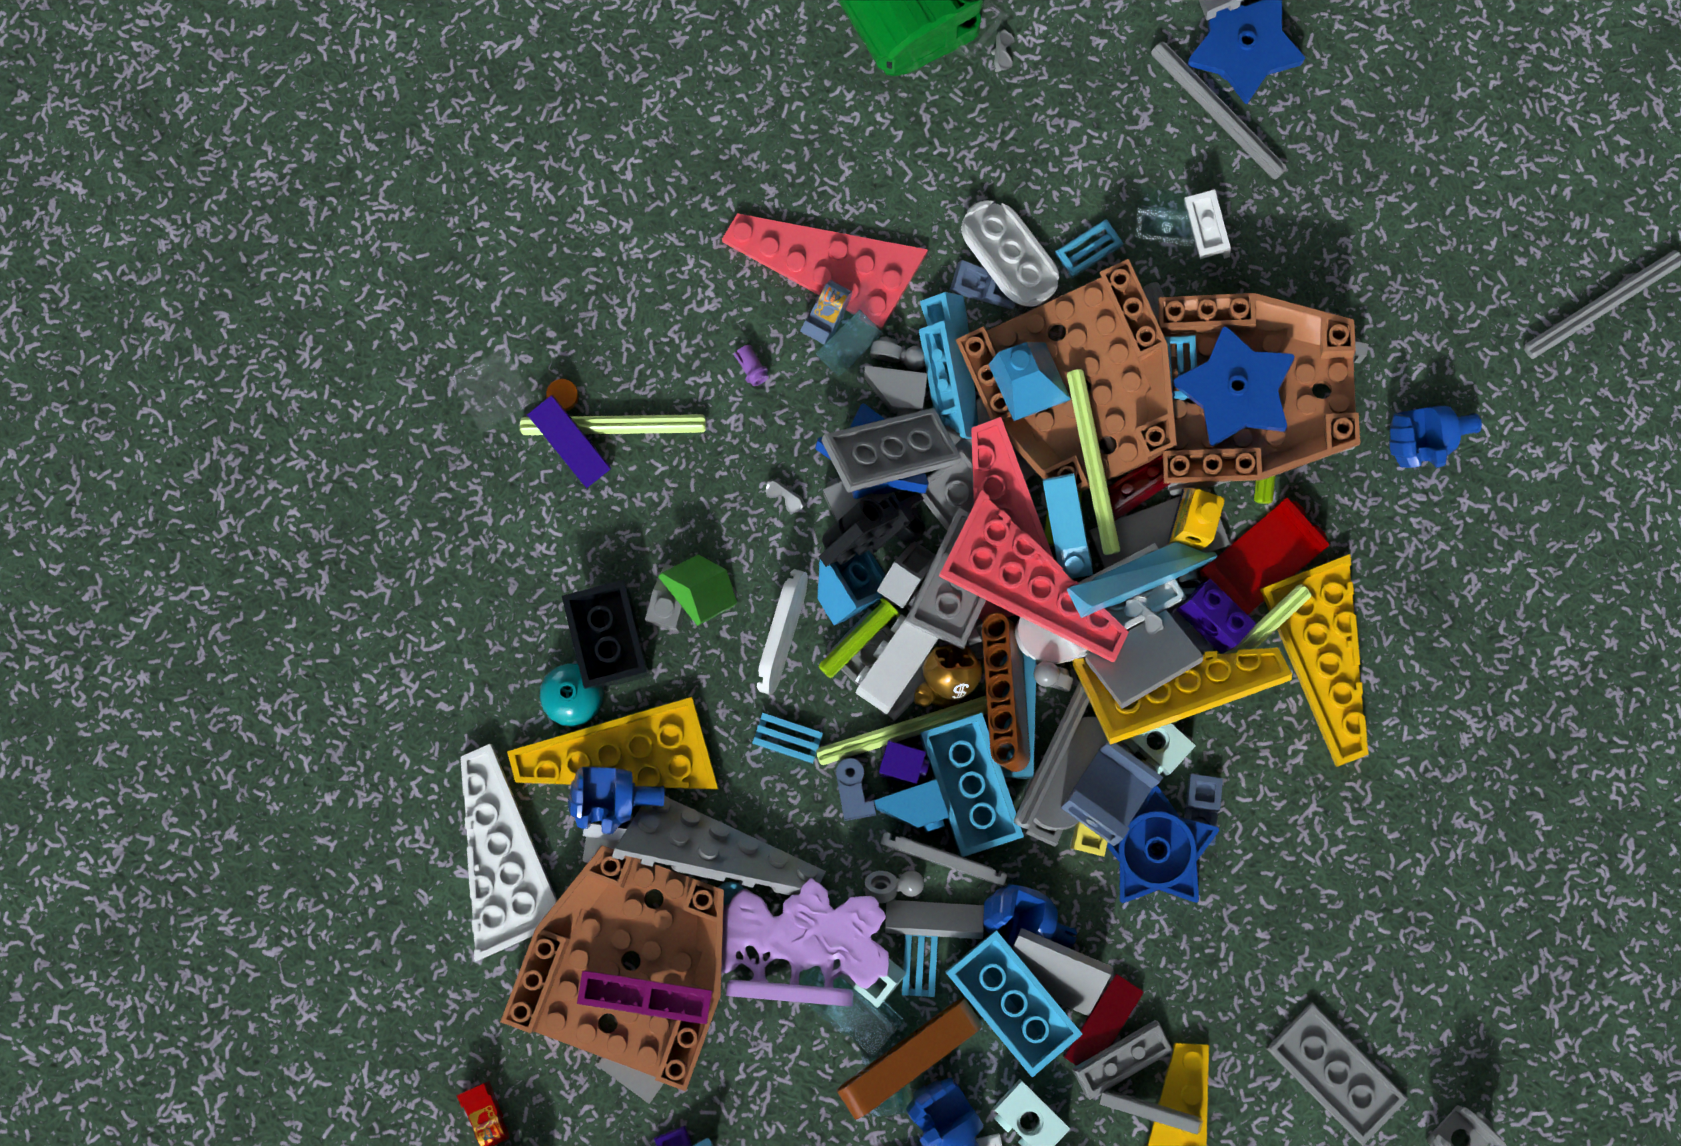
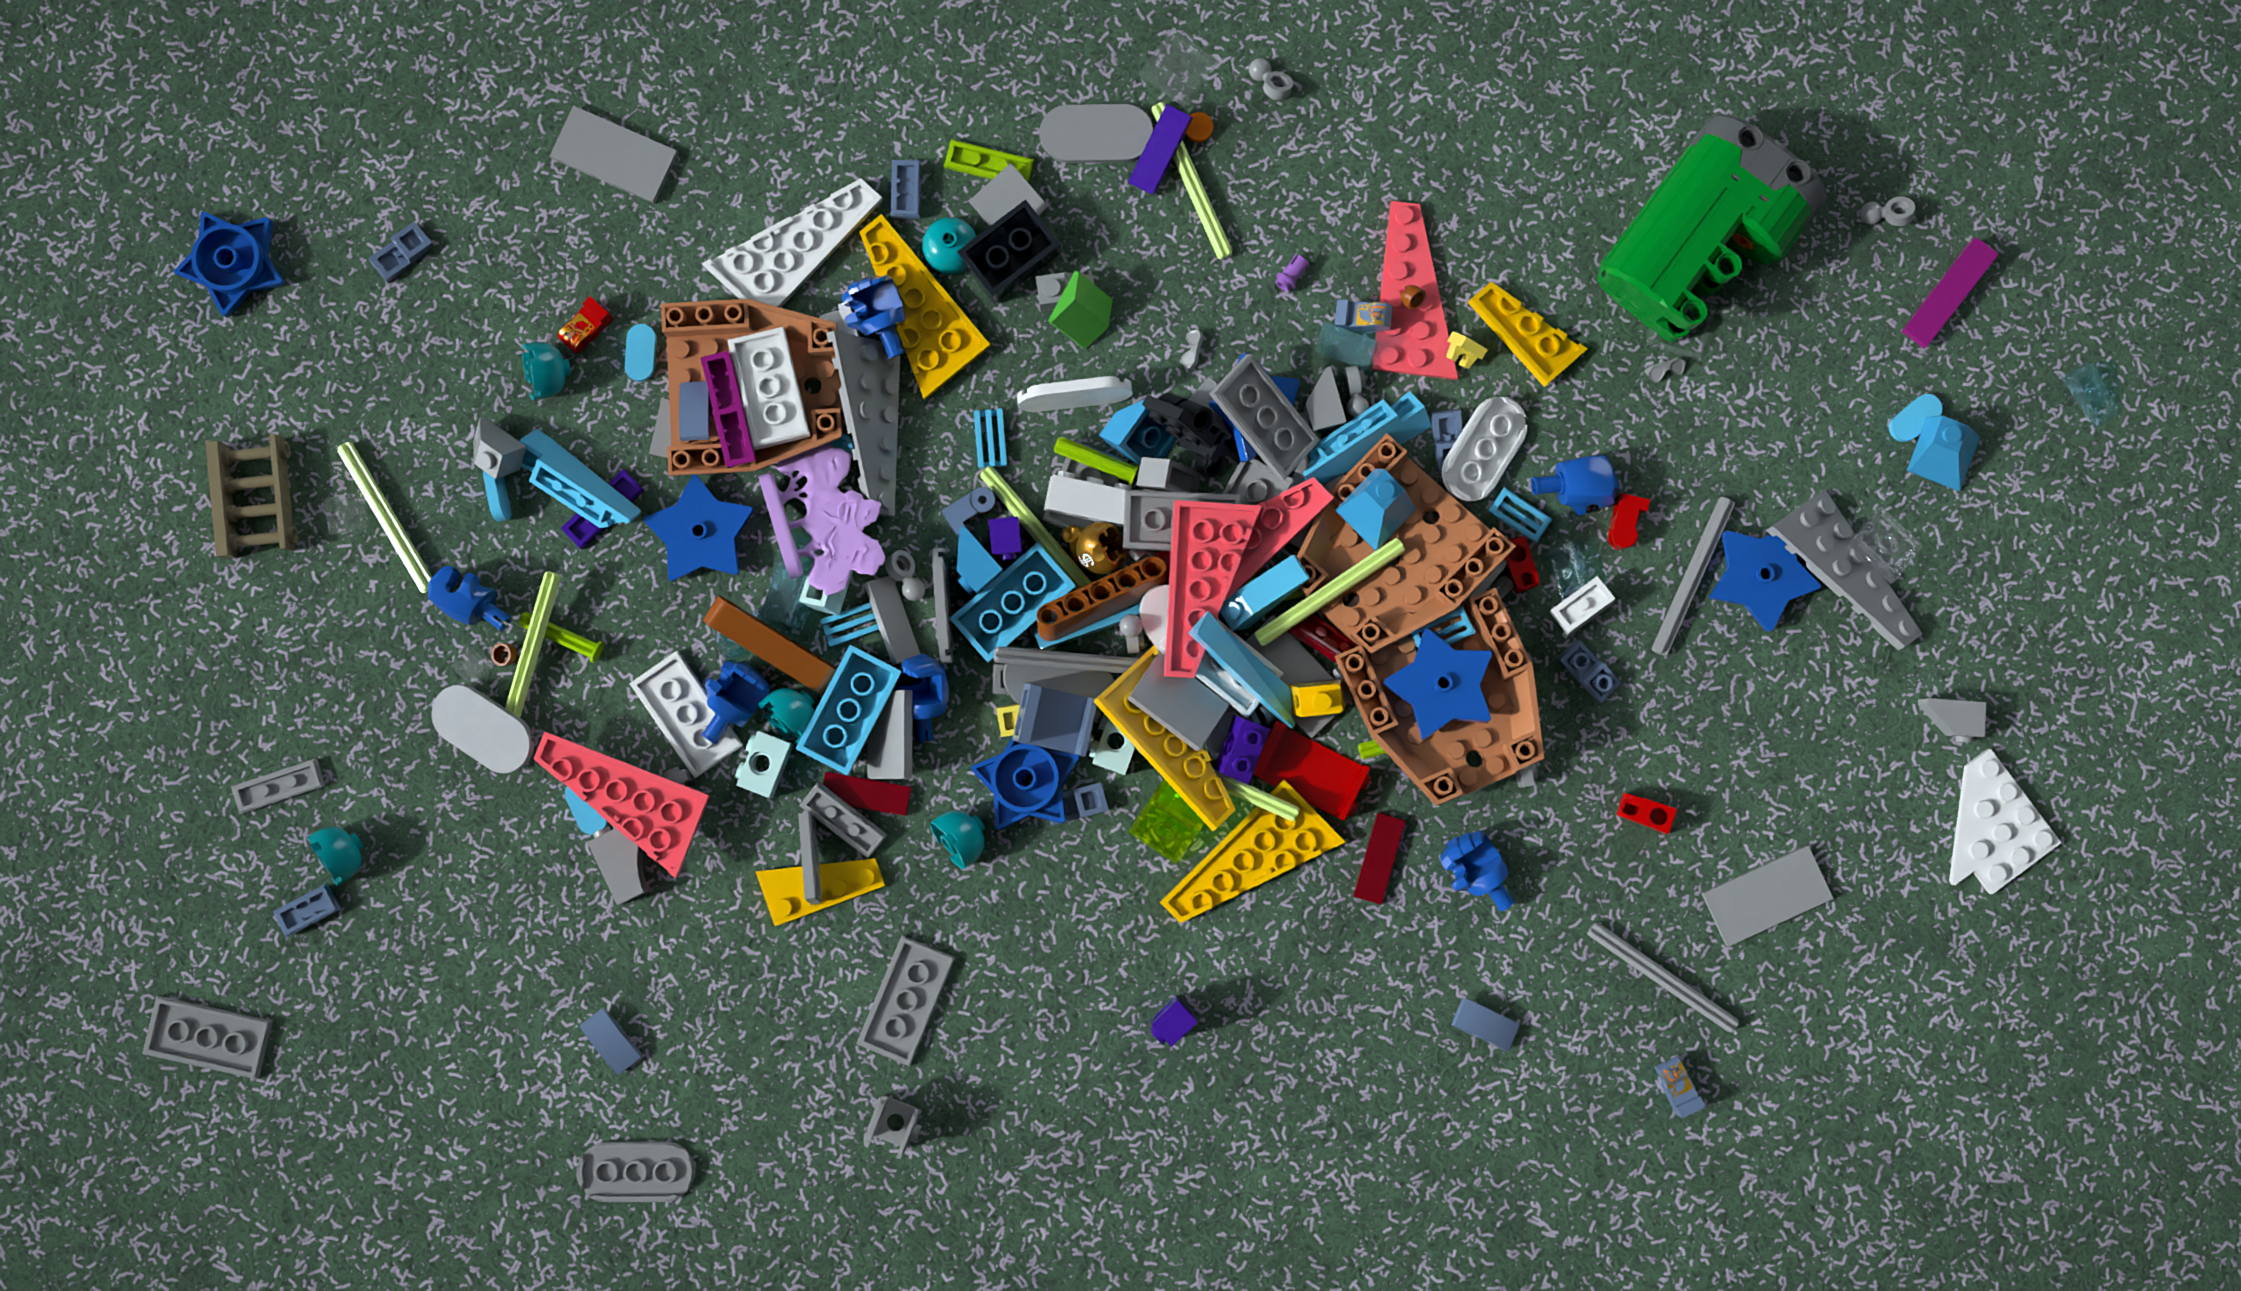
camera: 60 degrees right, 5 degrees up
(315, 1007) = (613, 154): none -> light grey tile
(492, 715) = (906, 189): none -> sand blue plate
(503, 620) = (984, 161): none -> lime tile
(521, 499) = (1095, 133): none -> light grey tile
(538, 1067) = (640, 352): none -> medium azure tile
(546, 616) = (1004, 194): none -> light grey tile
(554, 299) = (1276, 84): none -> light grey plate
(629, 1034) = (694, 411): none -> sand blue slope
(639, 945) = (769, 388): none -> white tile
(761, 1058) = (717, 544): none -> blue plate
(829, 256) = (1413, 297): none -> dark orange hinge
(901, 228) = (1468, 348): none -> light yellow tile
(923, 162) = (1532, 340): none -> yellow wing
(988, 1068) = (788, 712): none -> teal cylinder
(1084, 175) = (1581, 483): none -> blue piece
(1137, 151) = (1622, 528): none -> red leg
(1147, 266) = (1521, 566): none -> red leg
(1153, 622) = (1212, 695): light grey piece -> none
(1190, 942) = (960, 836): none -> teal cylinder
(1259, 724) = (1167, 823): none -> clear neon green slope
(1271, 248) = (1588, 671): none -> sand blue slope
(1378, 529) = (1379, 858): none -> dark red tile
(1437, 250) = (1646, 813): none -> red leg
(1470, 804) = (1172, 1022): none -> dark purple brick
(1561, 173) = (1767, 895): none -> light grey tile
(1587, 494) = (1485, 1024): none -> sand blue slope

